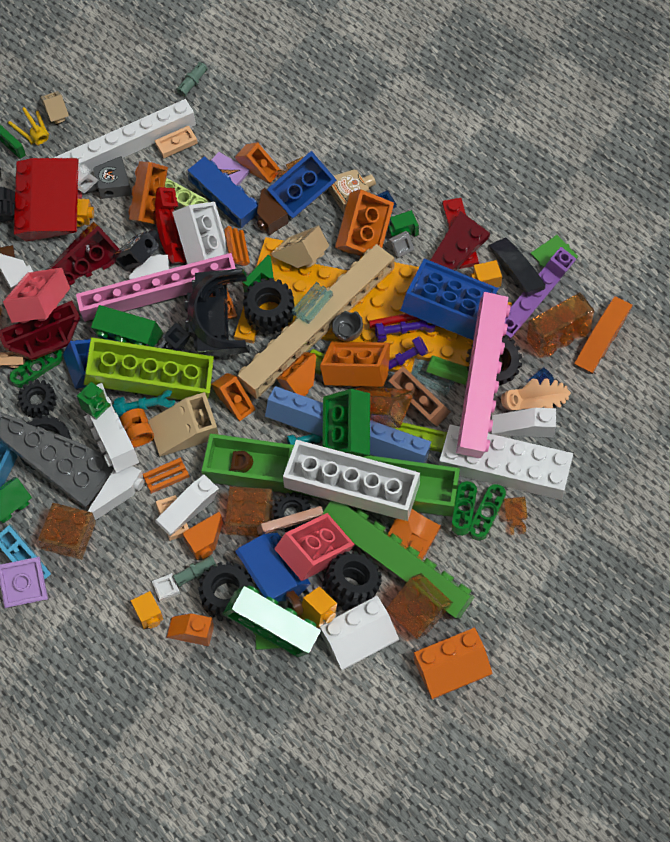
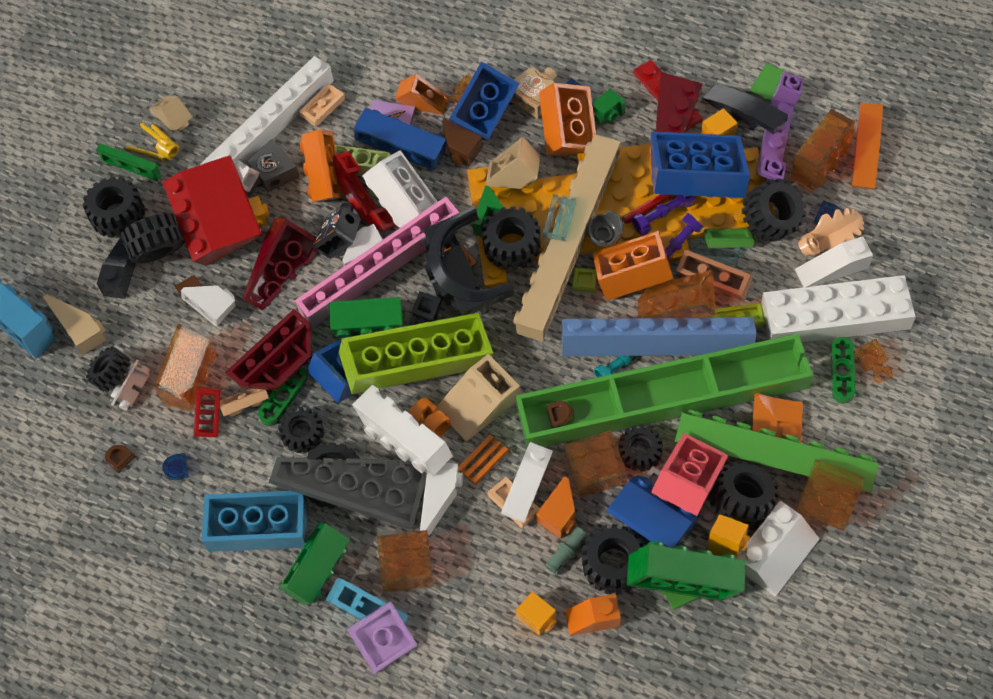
camera: 20 degrees left, 0 degrees up
(36, 295) = (253, 317): coral brick -> none
(93, 400) = (376, 406): green brick -> none
(121, 406) = (425, 390): teal piece -> none
(165, 587) = (542, 581): white tile -> none
(192, 79) = (307, 35): sand green pin -> none
(233, 396) = (516, 347): orange slope -> none
(239, 248) = (440, 188): orange tile -> none
(290, 520) = (649, 456): nougat tile -> none
(294, 602) = (696, 541): reddish brown tile -> none
(299, 375) = (577, 297): orange slope -> none
(347, 422) = (662, 331): green slope -> none
(351, 480) = (698, 387): white brick -> none
(401, 244) = (614, 126): light grey tile -> none
(453, 663) = (891, 542): orange slope -> none
(466, 515) = (818, 383): green beam -> none
(482, 375) = (779, 228): bright pink brick -> none

